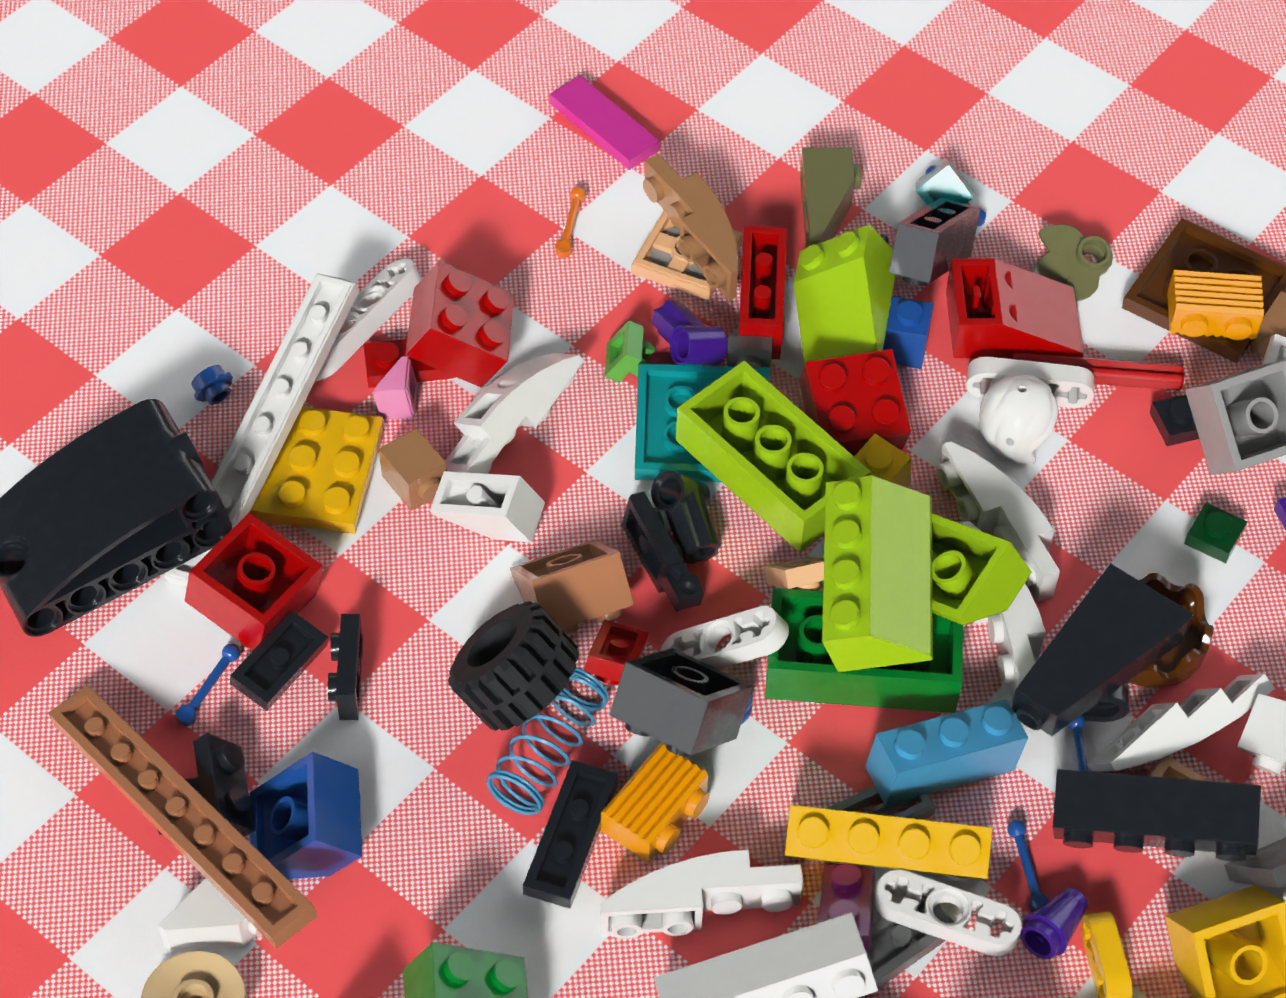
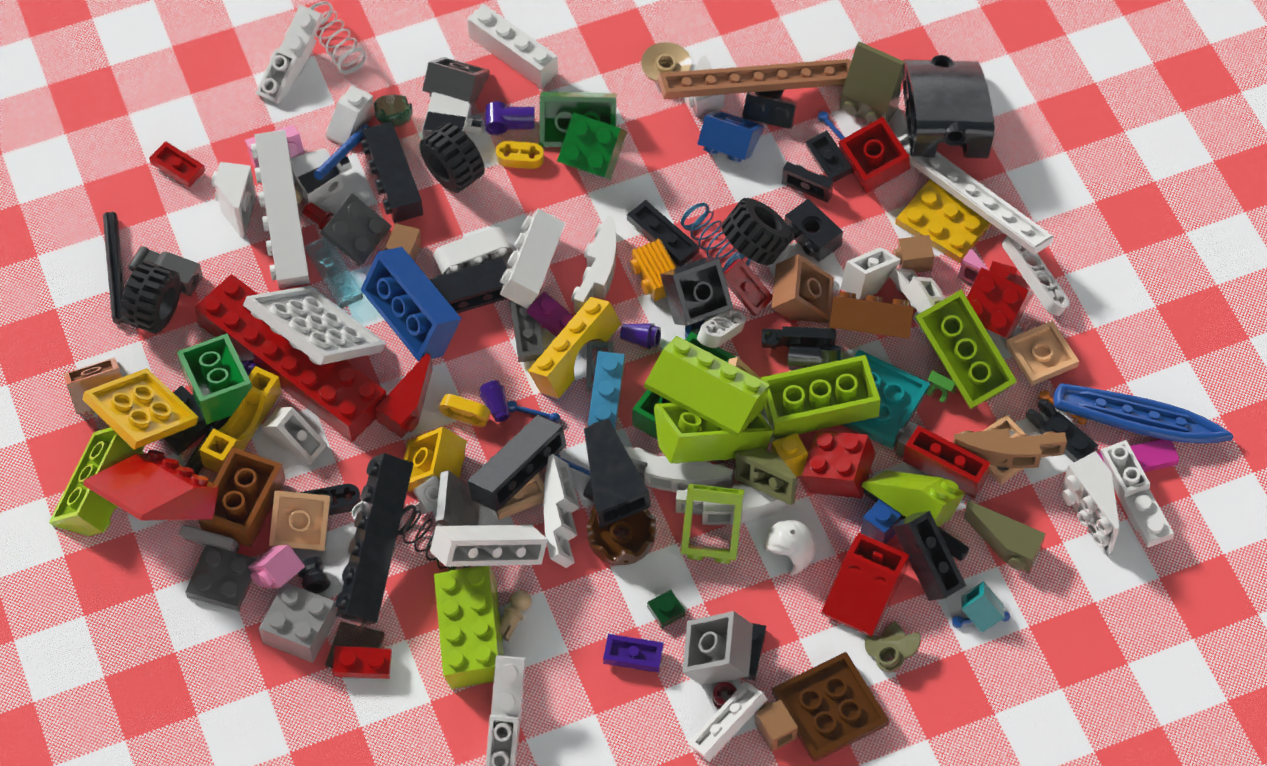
camera: 120 degrees right, 5 degrees up
(119, 629) = (872, 84): none -> olive slope
(212, 385) = (1023, 192): blue plate -> none
(444, 595) = (826, 235): none -> black brick
(505, 258) = (1042, 353): none -> light nougat plate
(538, 136) = (1138, 415): none -> blue piece
(568, 317) = (966, 349): none -> lime slope
(582, 456) = (871, 315): none -> dark orange brick
(613, 206) = (1077, 444): none -> black hinge
(671, 94) = (1135, 494): none -> white slope
(688, 336) = (929, 412): dark purple piece -> none
(714, 115) = (1091, 494): none -> white slope
(789, 769) = (642, 334): none -> dark purple cone
(949, 453) = (766, 473): none -> olive slope
(957, 932) = (520, 361): white beam -> none
(1072, 383) = (813, 570): white beam -> none
(1072, 505) = (714, 495): none -> lime window
(1119, 371) = (804, 615): red axle -> none
(1215, 304) = (805, 681): light orange brick -> none

